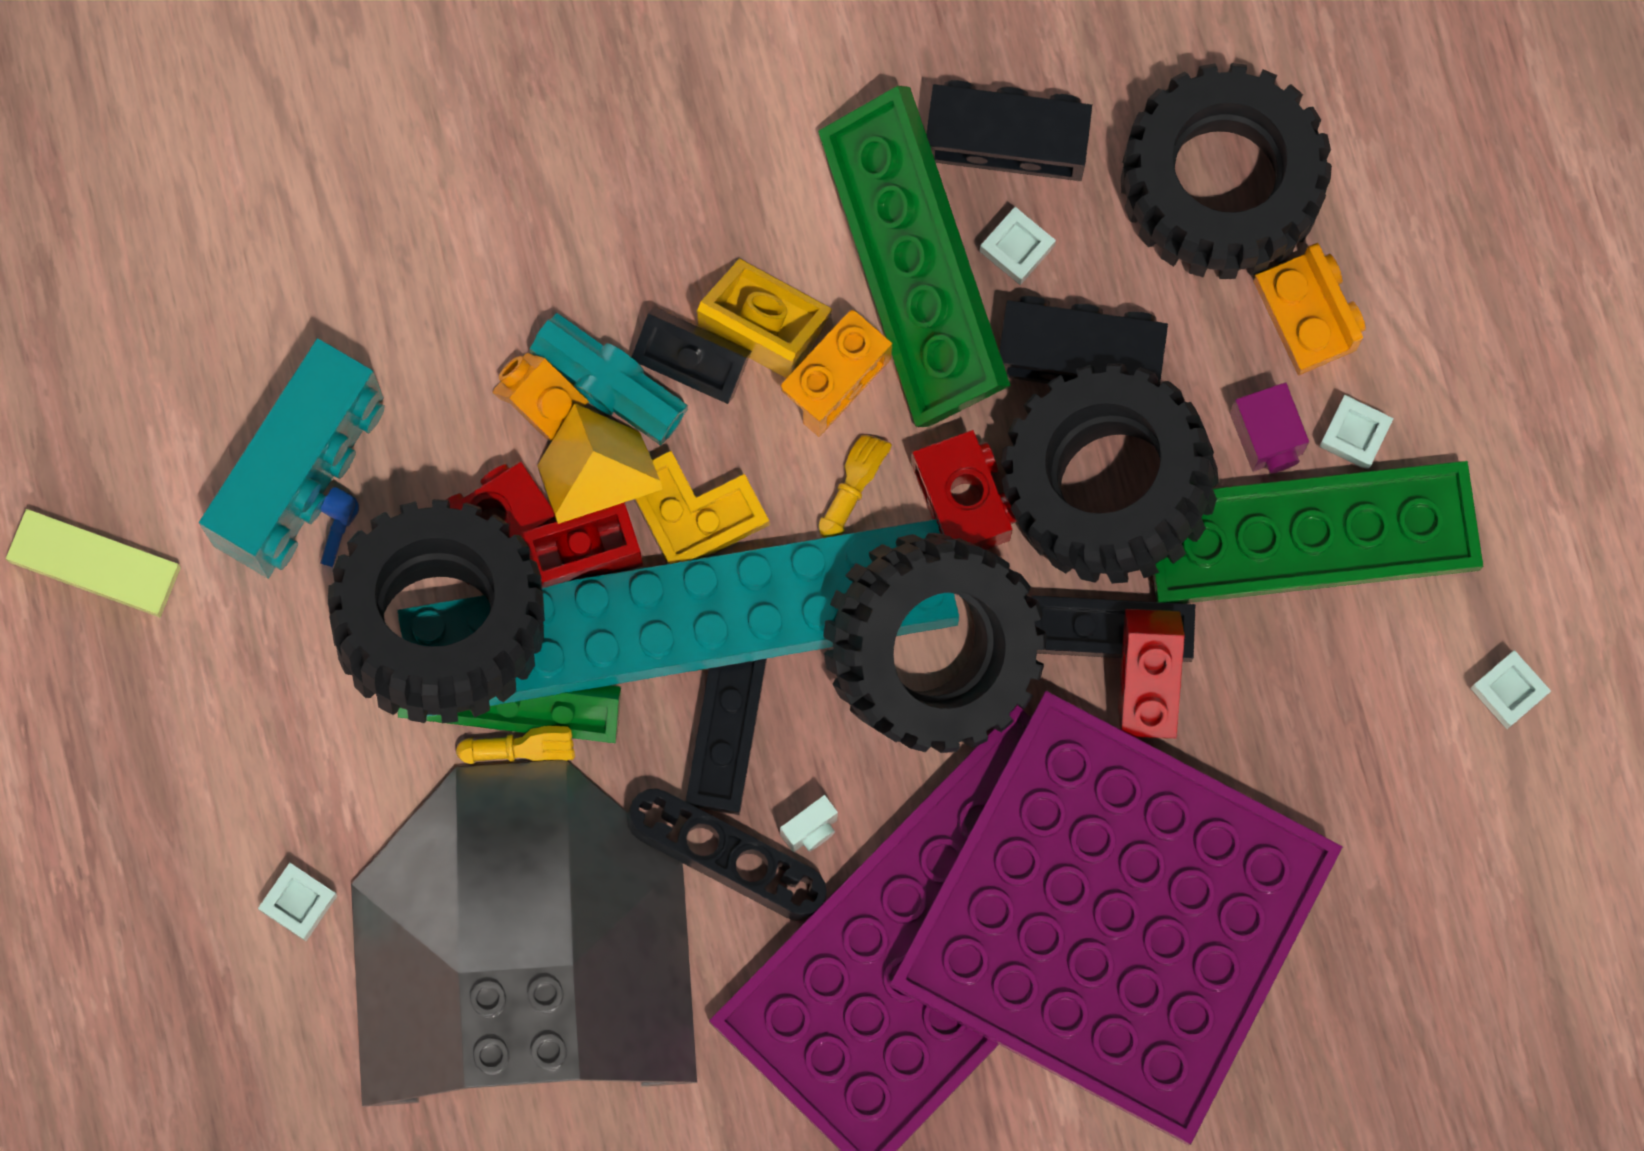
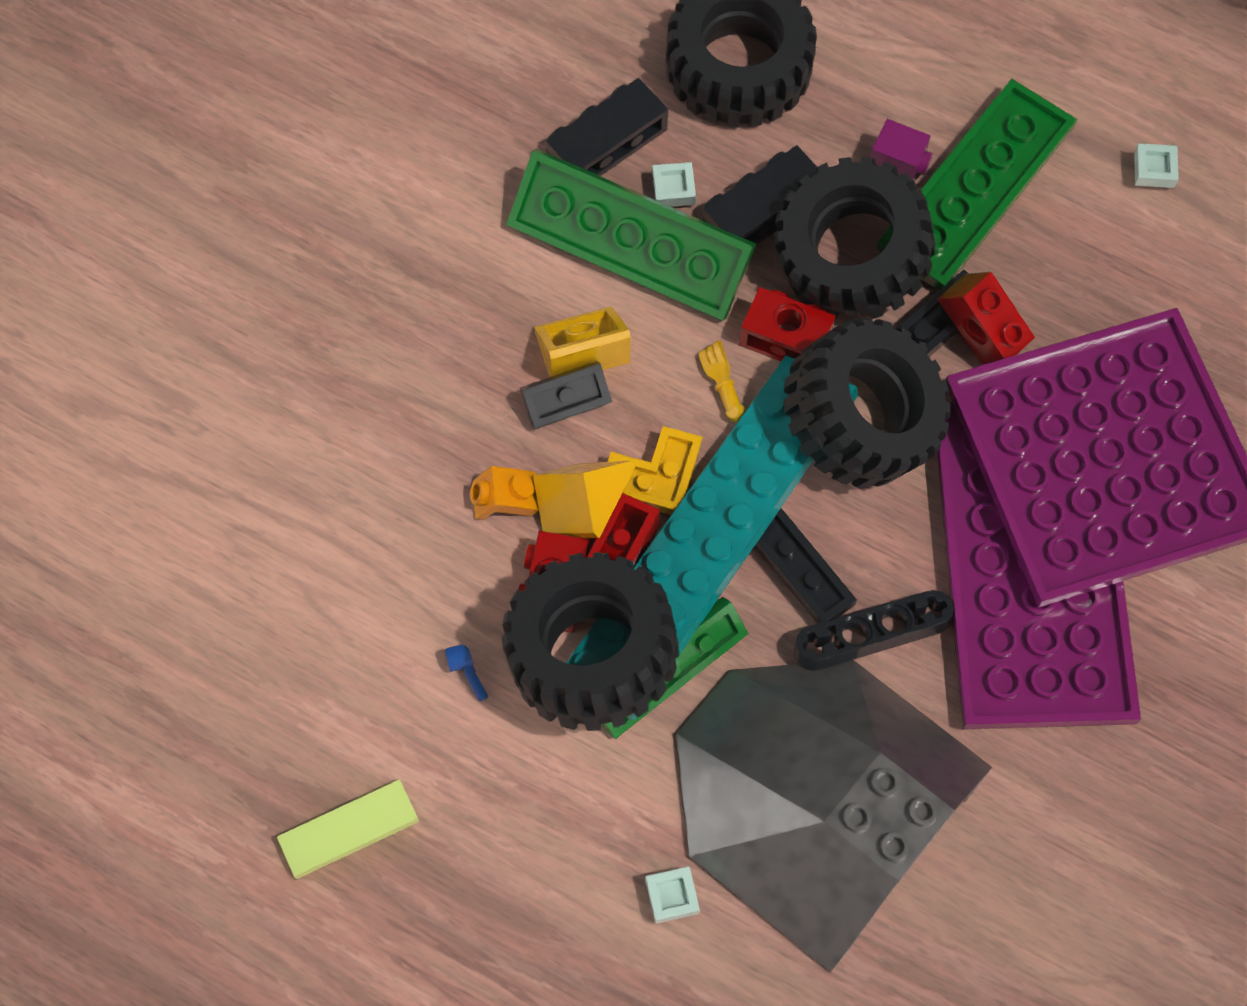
camera: 45 degrees left, 10 degrees down
(294, 459) = (407, 644): teal brick -> none
(535, 745) = (708, 676): yellow piece -> none
(609, 379) = (536, 447): teal piece -> none
(810, 826) = (900, 570): light aqua plate -> none
(837, 371) = (654, 326): light orange bracket -> none
(1311, 309) = (853, 80): light orange bracket -> none
(1356, 432) = (942, 117): light aqua plate -> none

